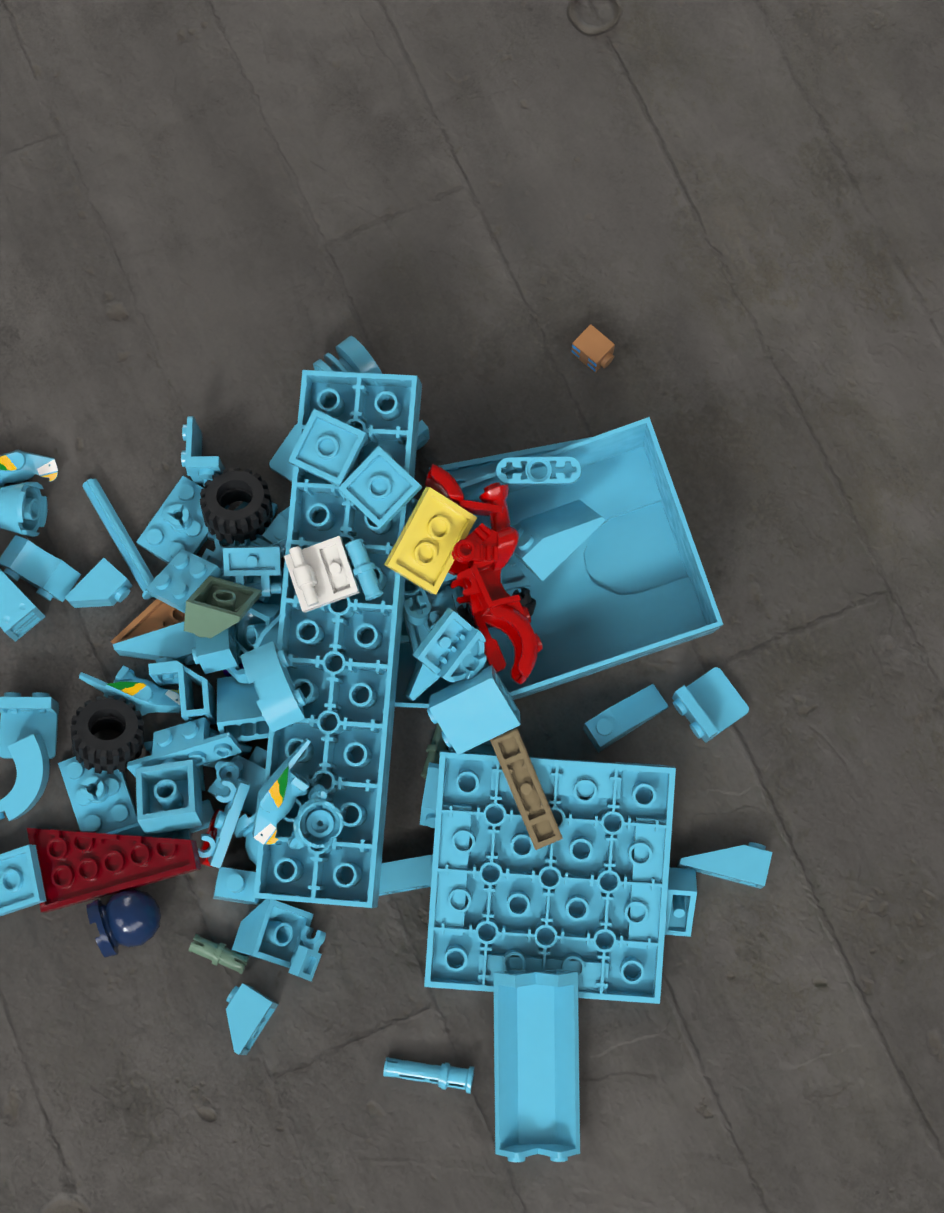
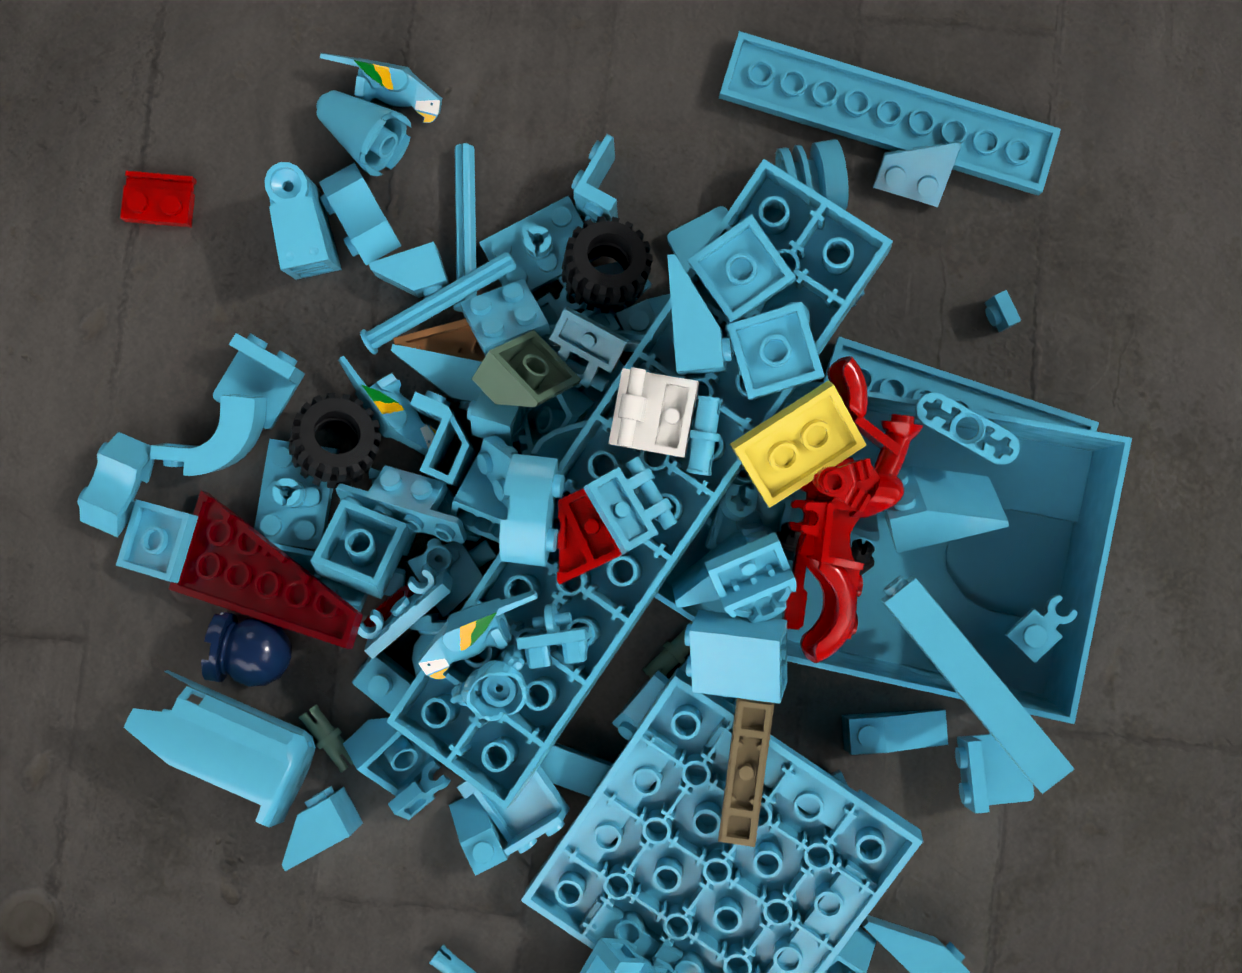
camera: 25 degrees right, 10 degrees up
(129, 598) = (437, 302): none -> medium azure axle
(149, 991) = (229, 747): none -> medium azure piece
(234, 682) = (494, 463): none -> medium azure wing
(321, 505) = (696, 333): none -> medium azure slope
(321, 682) = (582, 537): none -> red wing
(337, 649) = (622, 510): none -> medium azure plate
(351, 757) = (538, 645): none -> medium azure hips
(367, 957) = (477, 834): none -> medium azure slope
(378, 300) = (888, 111): none -> medium azure plate
(384, 924) = (534, 812): none -> medium azure panel
(421, 328) = (918, 172): none -> medium azure wing
(533, 390) = (1001, 311): none -> medium azure plate
(593, 349) = (1095, 302): medium nougat brick -> none
(634, 629) = (976, 683): none -> medium azure brick
(663, 578) = (1036, 632): none -> medium azure plate

